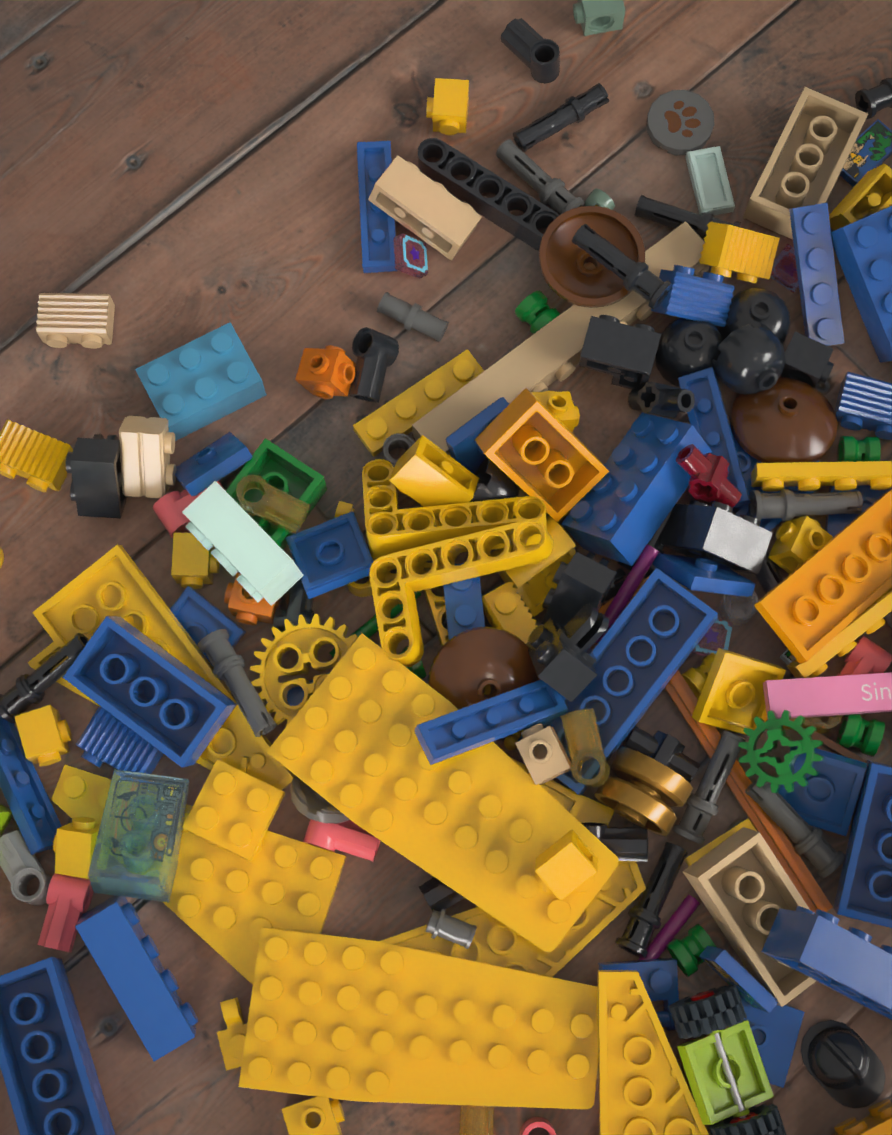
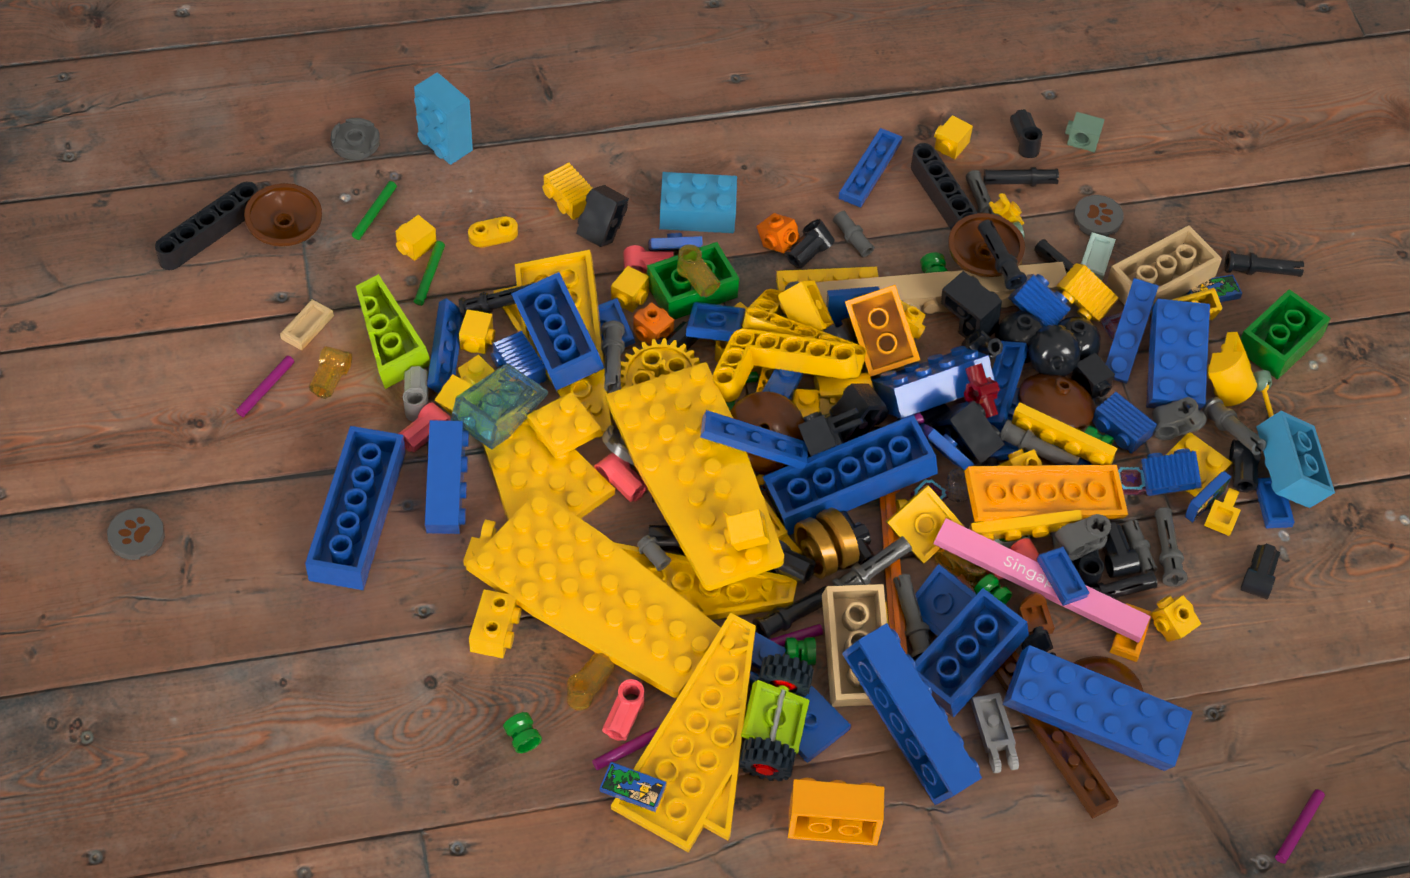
camera: 25 degrees right, 20 degrees down
(75, 319) = (644, 136): tan brick -> none
(146, 456) = (638, 219): tan brick -> none
(241, 545) = (665, 277): light aqua brick -> none
(410, 256) = (874, 201): clear pink tile -> none
(424, 207) = (899, 178): tan brick -> none
(543, 753) = (775, 481): tan brick -> none
(577, 179) = (1006, 209): none -> yellow plate
(585, 744) = (803, 489): clear yellow piece -> none
(736, 975) = (821, 679): blue tile -> none
(784, 769) = (928, 557): green gear -> none
(843, 1064) = (856, 763): black piece -> none

